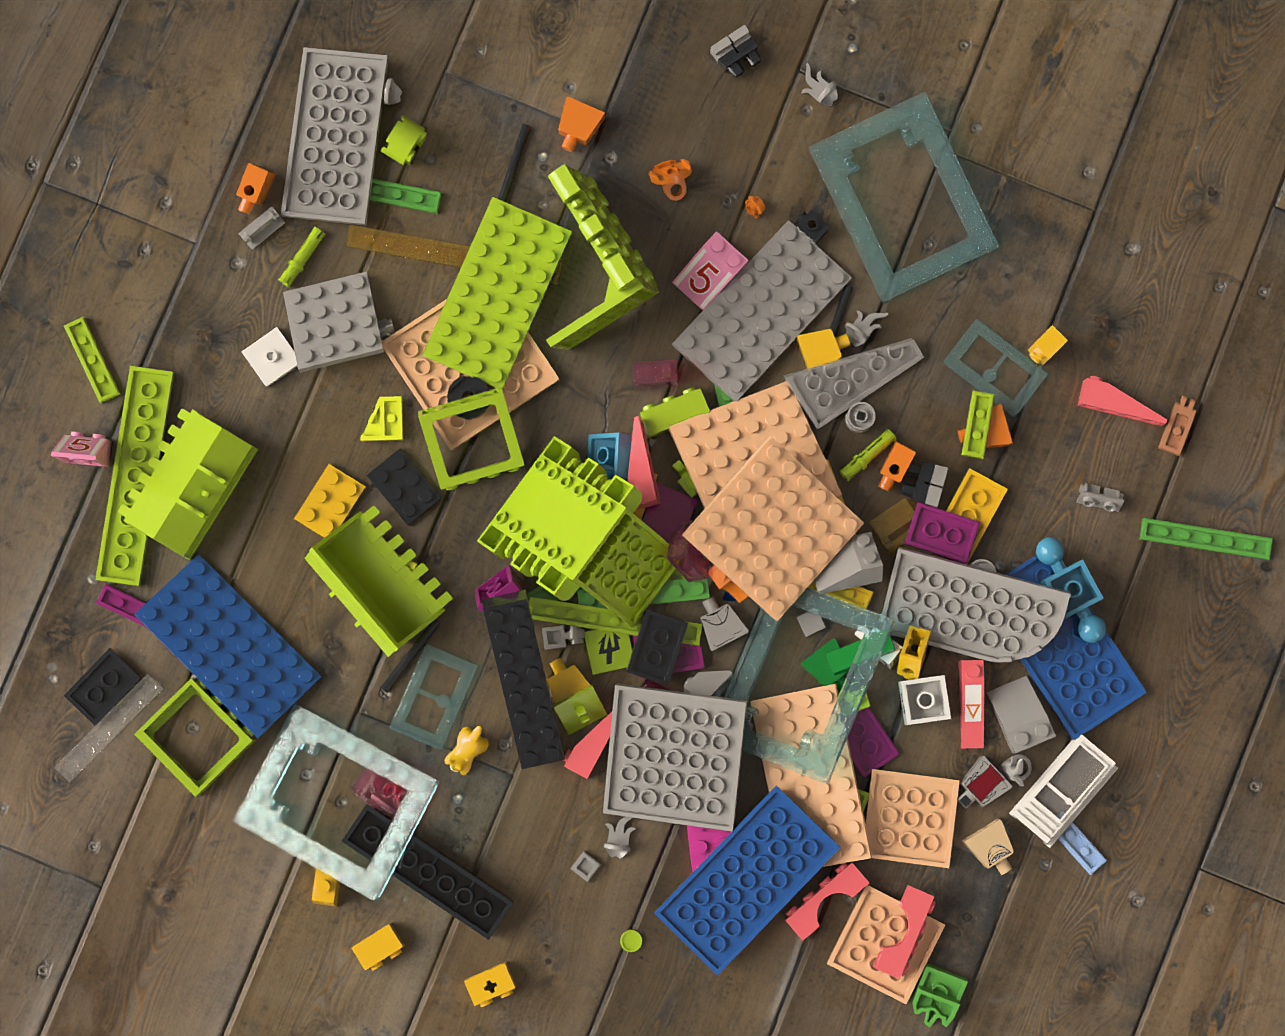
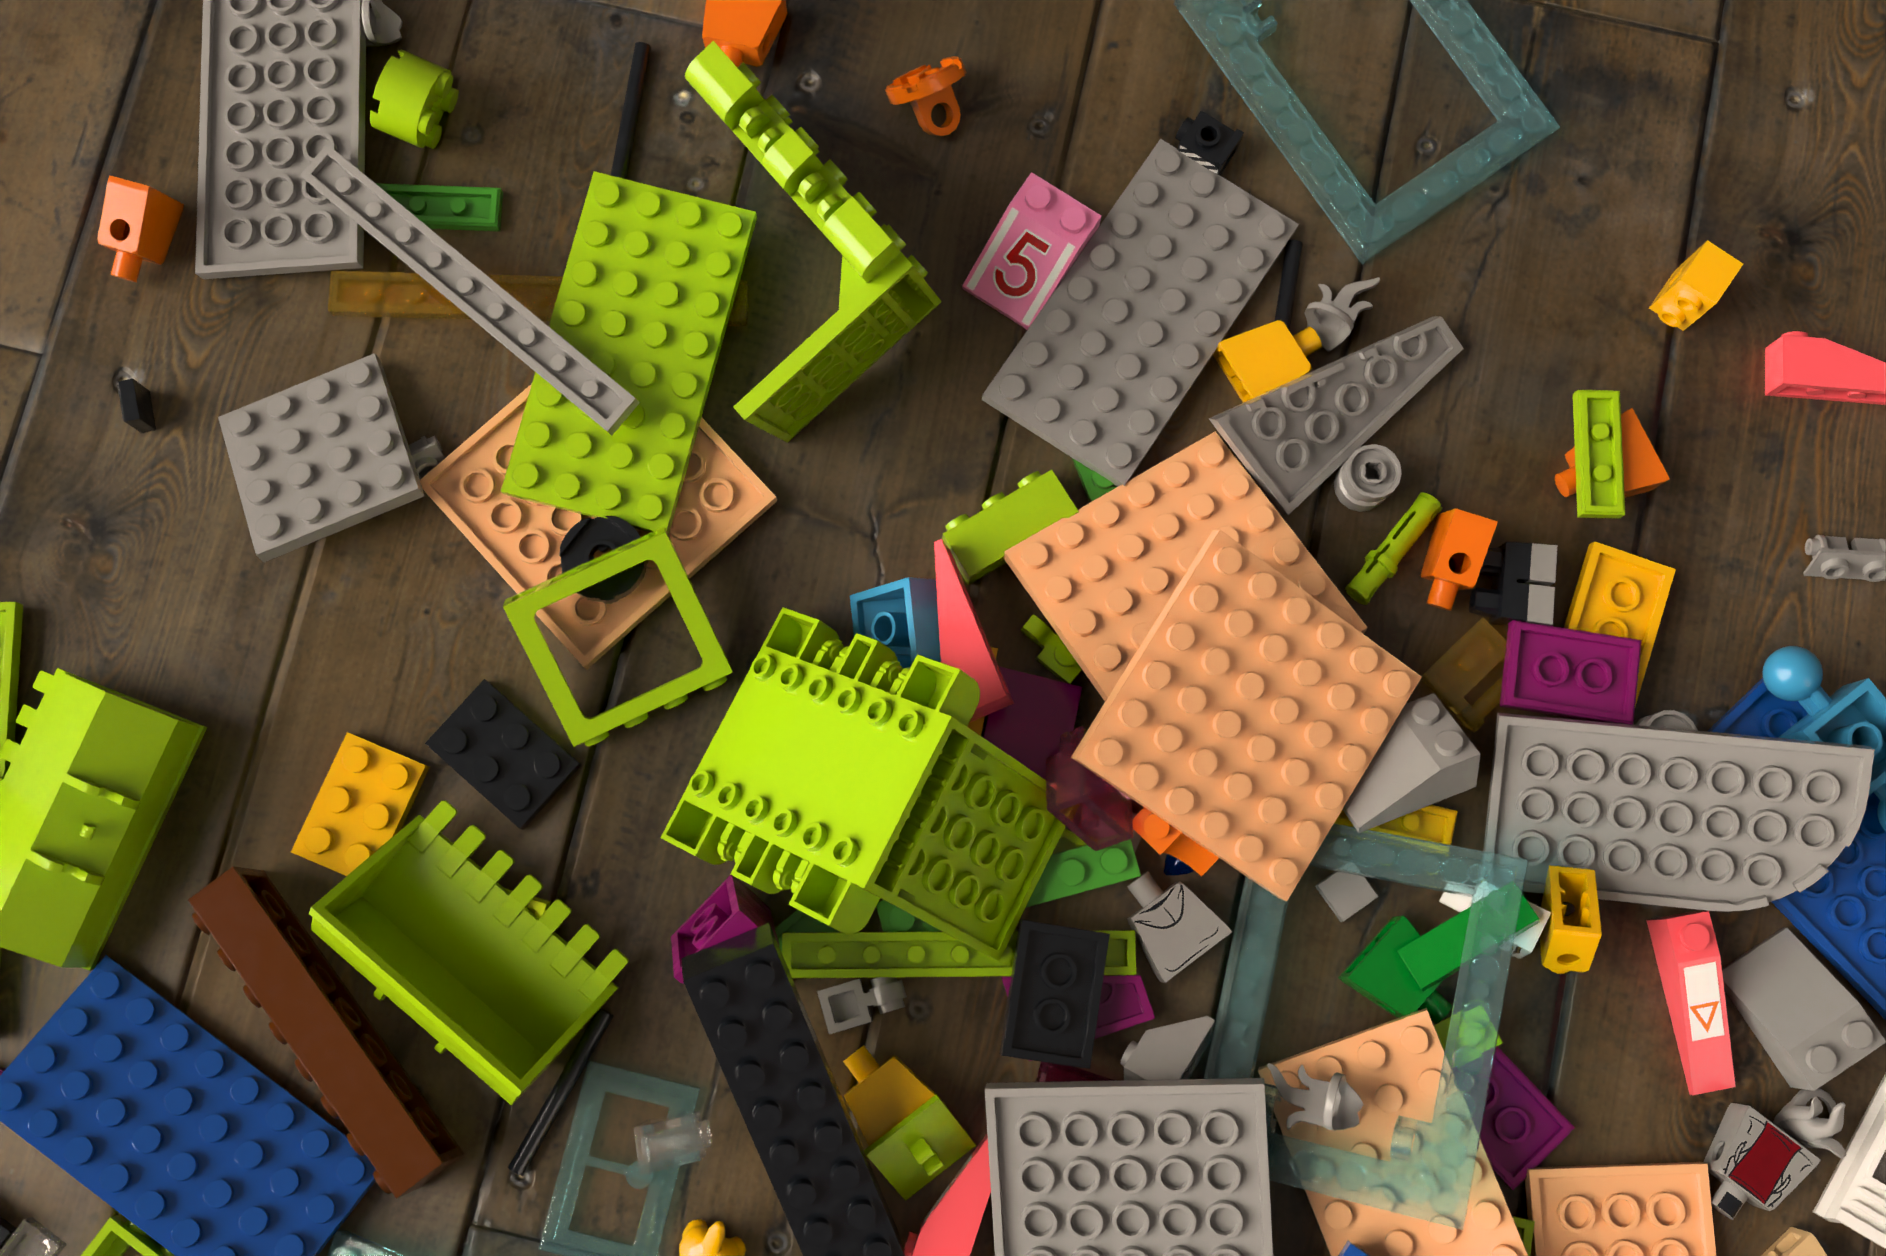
camera: 10 degrees left, 5 degrees down
(243, 280) = (136, 405): none -> black tile
(261, 228) = (164, 305): light grey hinge -> none
(271, 357) = (208, 544): white plate -> none
(301, 257) = (239, 360): lime pin -> none
(303, 605) = (325, 1030): none -> reddish brown brick
(385, 421) = (449, 632): neon yellow wing -> none
(421, 249) = (470, 289): none -> light grey plate
(462, 686) = (671, 1141): none -> clear slope
(607, 650) = (956, 1015): lime tile -> none
(655, 373) = (960, 457): clear pink hinge -> none
(755, 206) = (1093, 122): orange plate -> none
(777, 718) = (1325, 1103): none -> light grey piece
(924, 700) = (1606, 1012): white brick -> none
(982, 384) = (1519, 352): clear light blue door -> none

